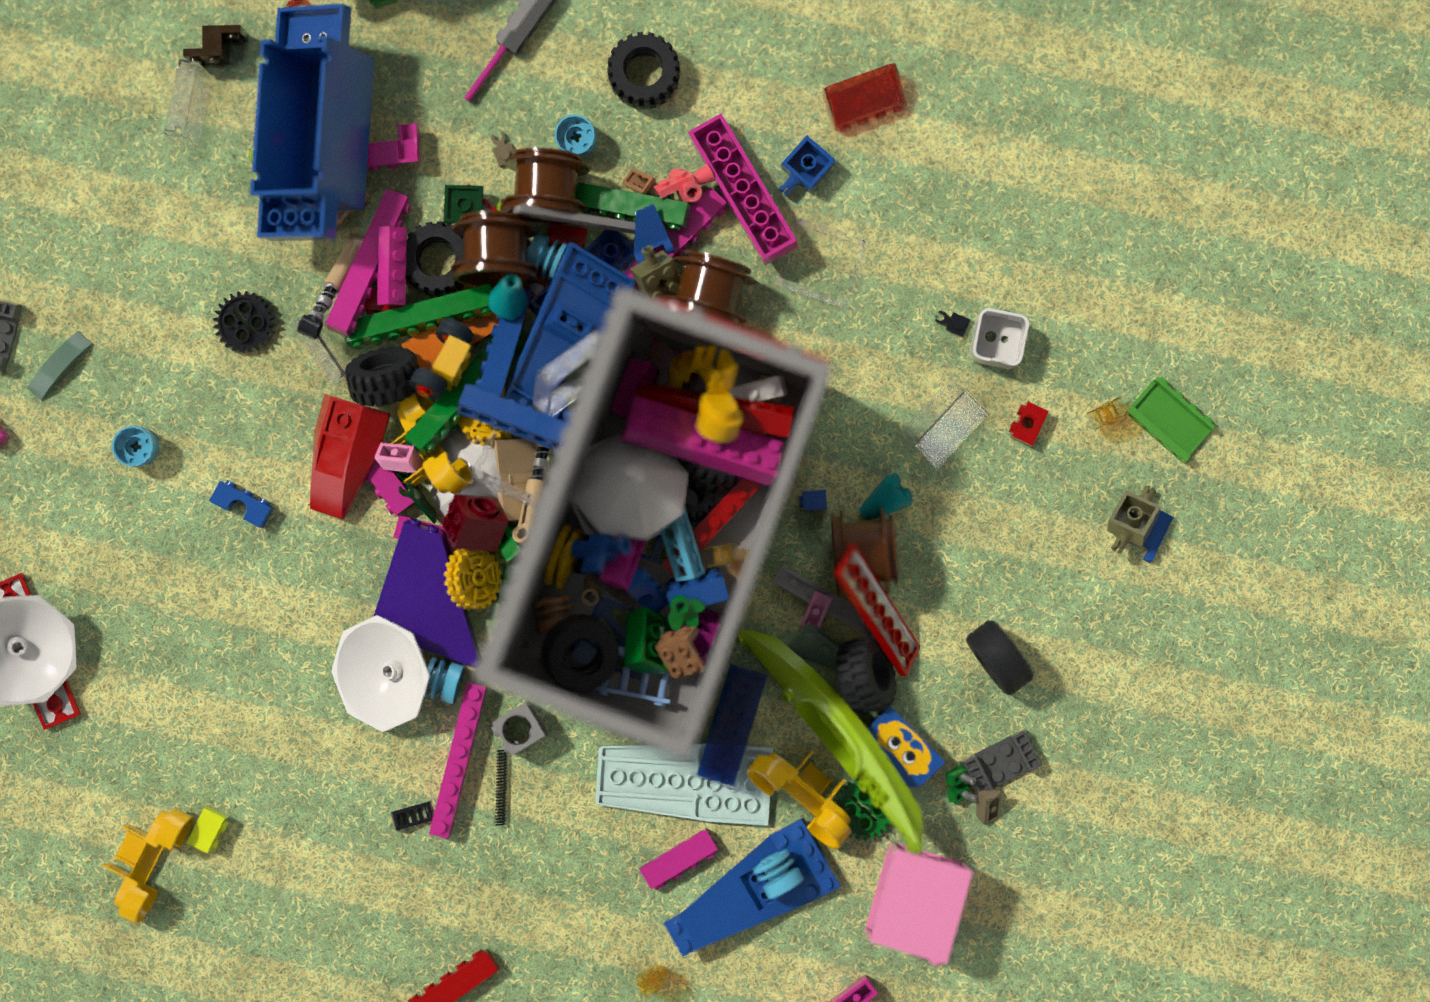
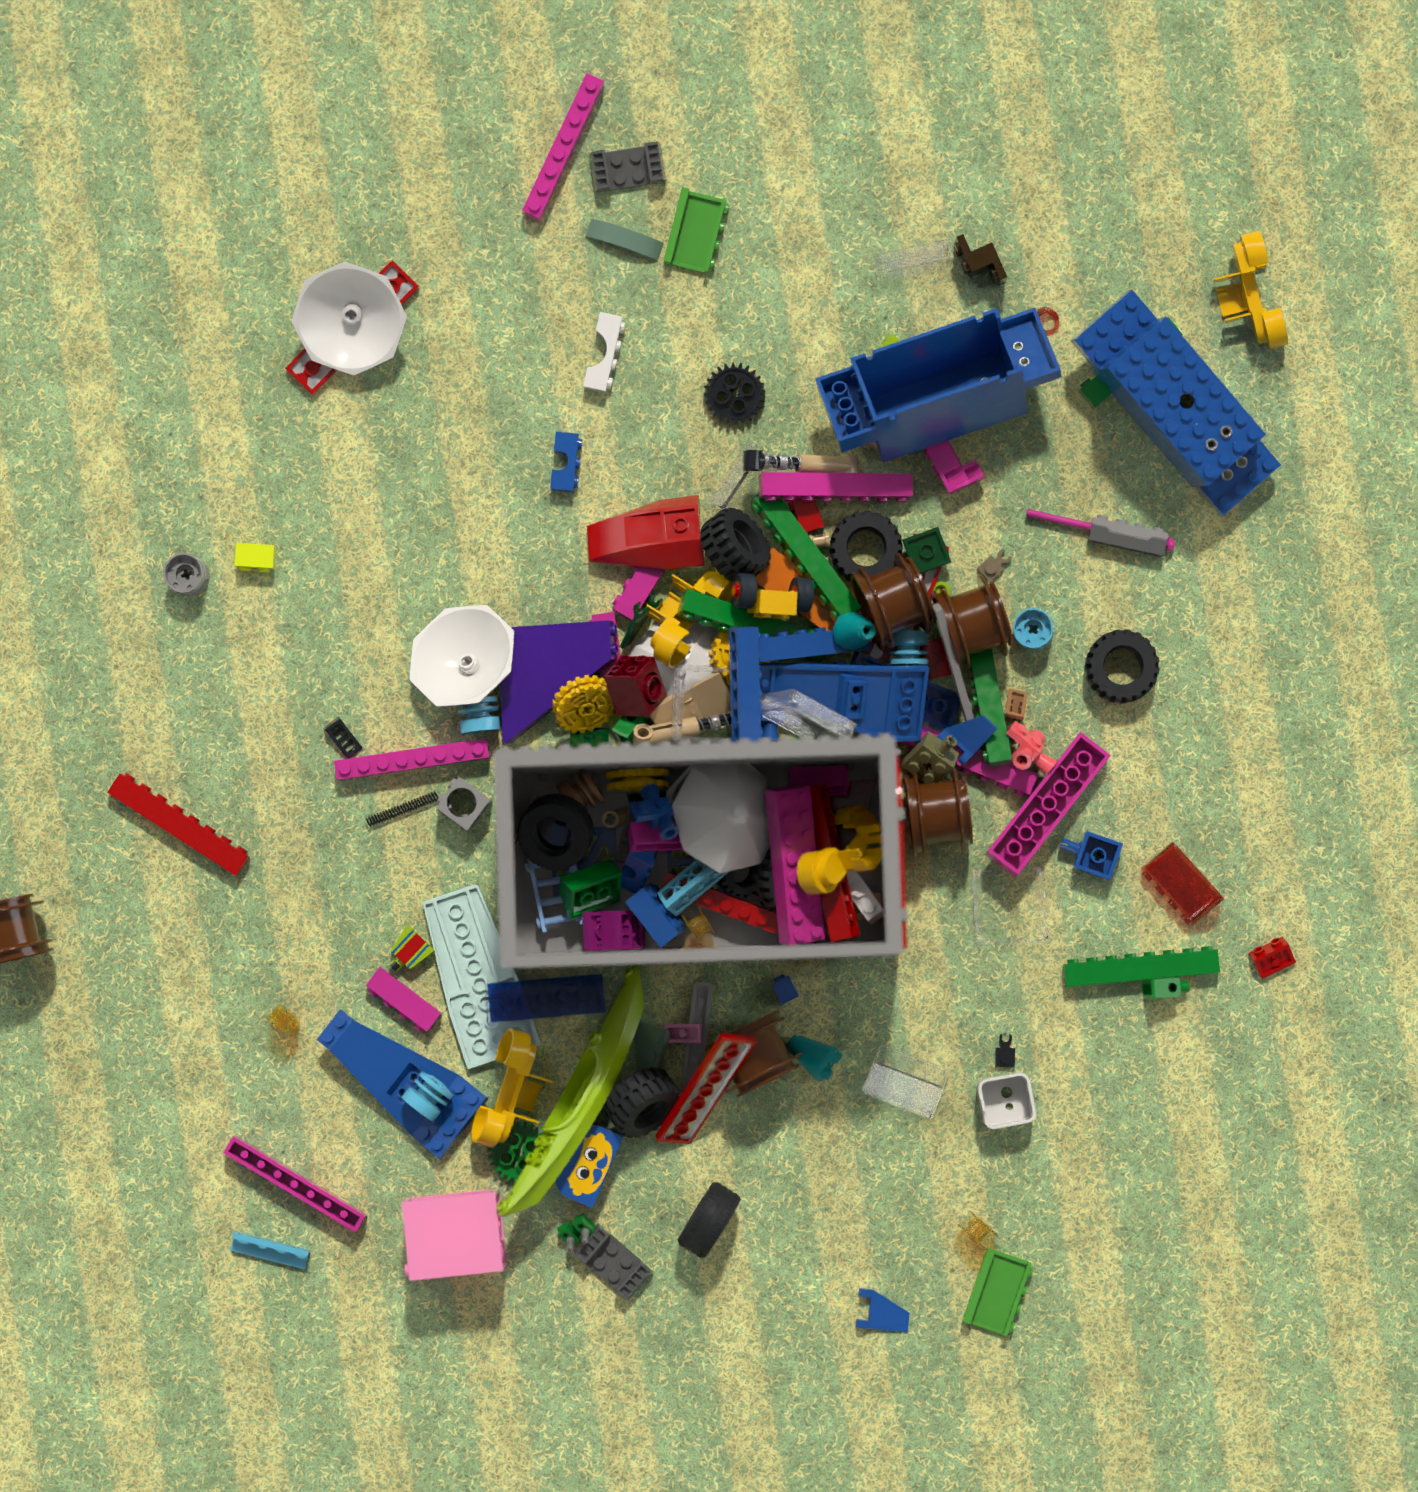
camera: 70 degrees right, 0 degrees up
(79, 296) = (695, 231): none -> bright green panel
(124, 448) = (568, 337): medium azure wheel -> none
(142, 853) = (239, 521): yellow piece -> none
(174, 440) = (598, 376): none -> white arch
(190, 910) = (177, 568): none -> light grey wheel
(391, 266) = (840, 510): dark pink brick -> none
(398, 457) = (666, 590): bright pink brick -> none
(414, 296) = (820, 540): none -> tan bush
(635, 834) = (409, 950): none -> torso
(679, 653) = (592, 923): medium nougat bracket -> none
(686, 613) = (630, 913): green plate -> none
(926, 167) = (1141, 968): none -> green brick
(953, 153) = (1159, 988): none -> green torso
(965, 45) = (1272, 957): none -> red bracket
(988, 805) = (568, 1266): dark tan slope -> none
(1036, 415) = (950, 1163): red brick -> none
(1133, 518) = (889, 1293): olive brick -> none

